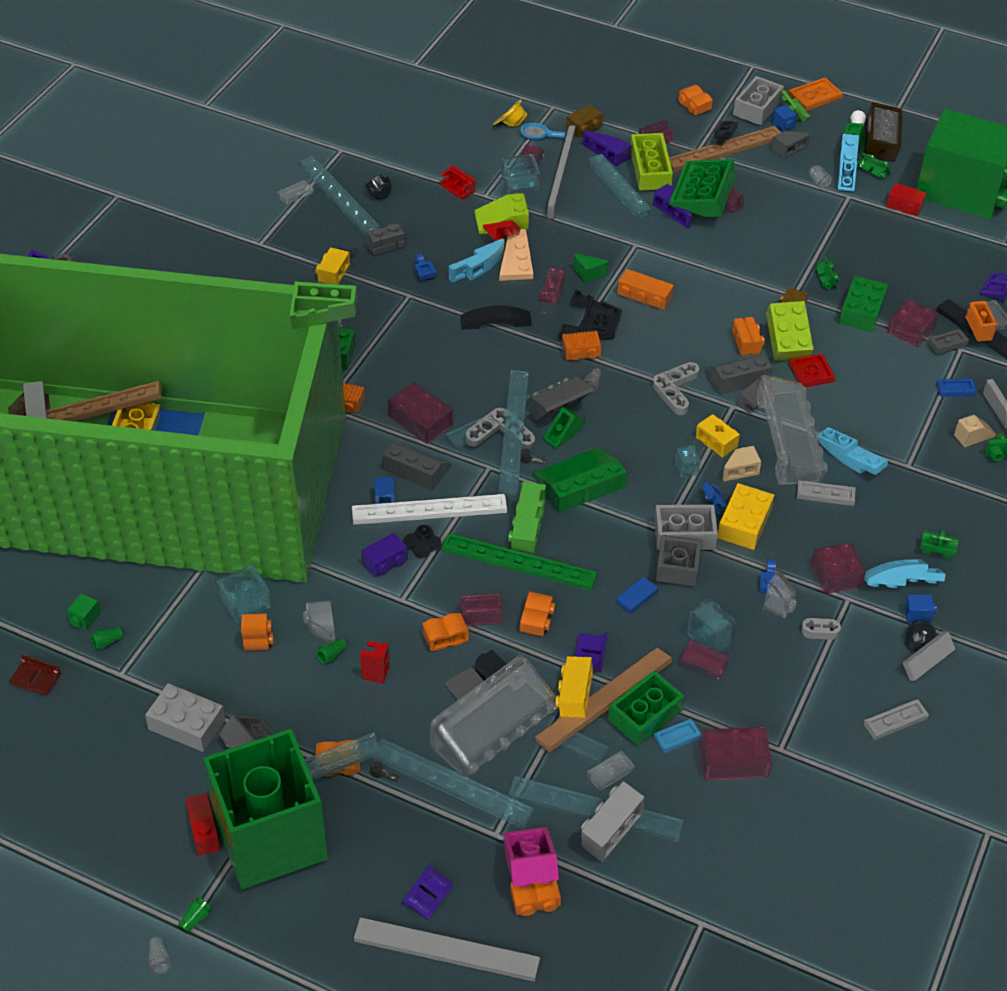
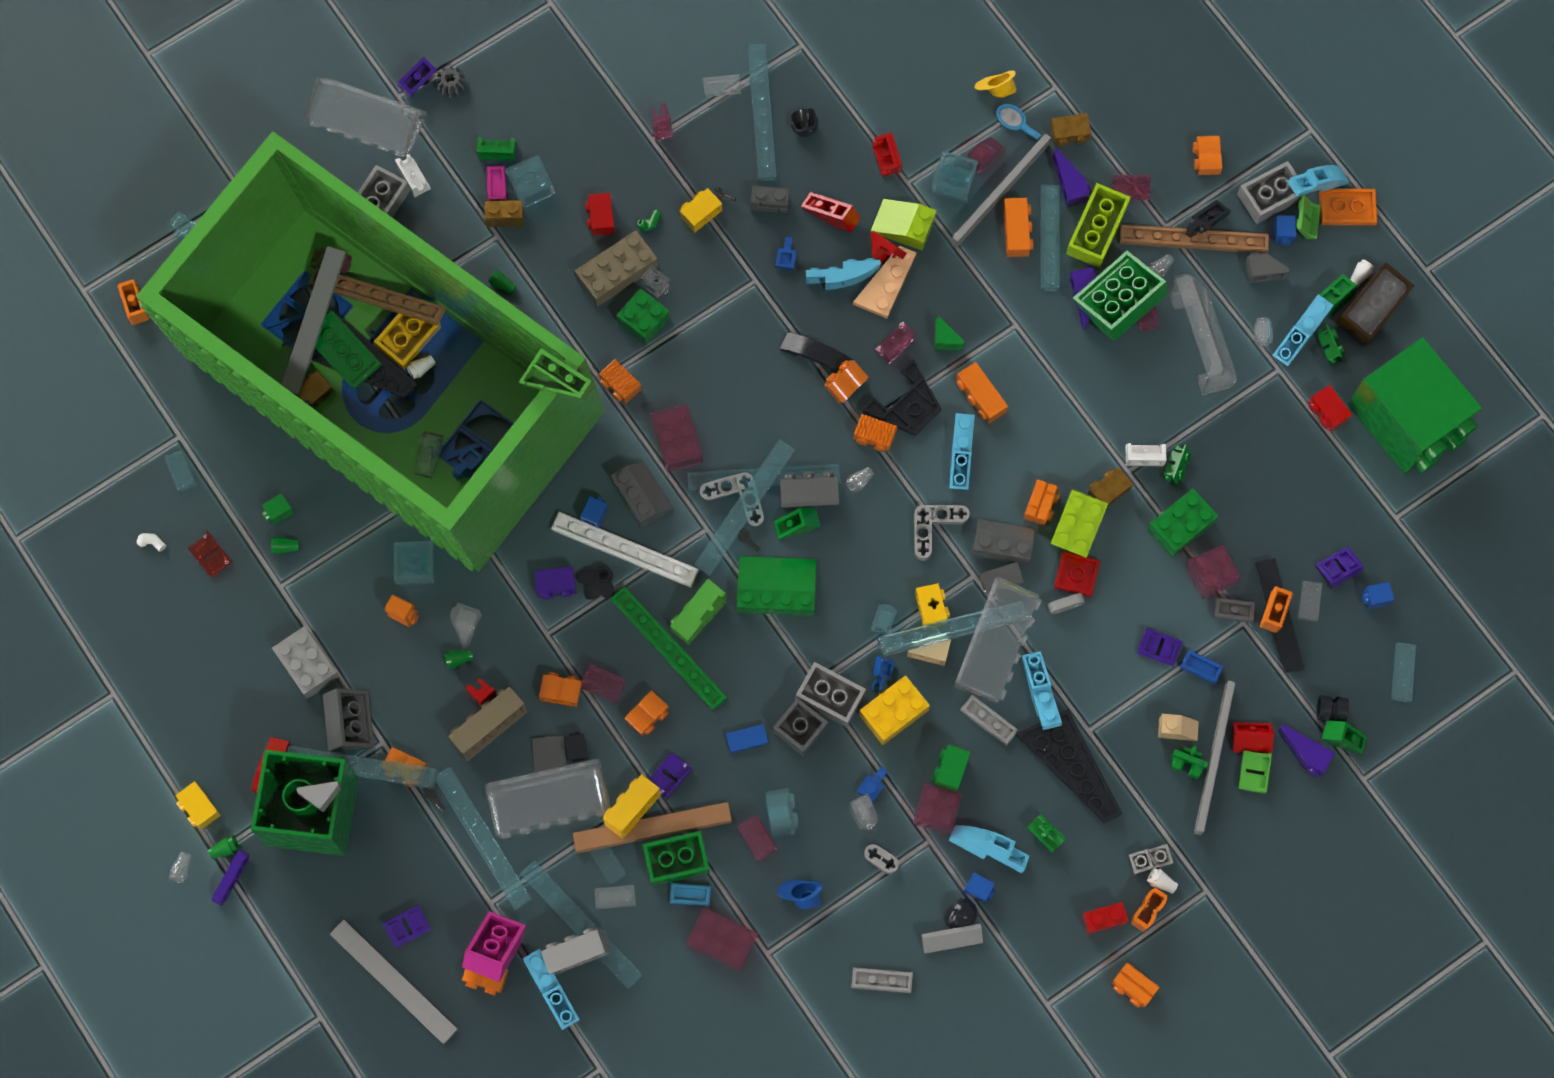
camera: 30 degrees right, 25 degrees up
(144, 889) = (197, 805): none -> yellow brick
(218, 931) = (230, 877): none -> dark purple beam
(265, 222) = (662, 123): none -> clear pink hinge
(284, 764) = (320, 794): none -> light grey slope
(396, 682) = (487, 723): none -> dark tan brick
(441, 229) = (832, 211): none -> red slope
(532, 322) = (845, 380): none -> orange brick
(590, 186) = (1017, 227): none -> orange brick
(607, 875) = (551, 990): none -> medium azure slope
(658, 330) = (961, 451): none -> medium azure slope
(734, 447) = (929, 634): none -> clear light blue tile
(778, 684) = (803, 893): none -> blue piece
(786, 77) = (1318, 178): none -> medium azure slope
(796, 193) = (1194, 297): none -> clear windscreen
(800, 279) = (1145, 455): none -> white hinge
(820, 390) = (1066, 603): none -> light grey beam
(827, 527) = (953, 763): none -> green brick
(906, 390) = (1168, 651): none -> dark purple piece
(913, 488) = (1071, 761): none -> black wing

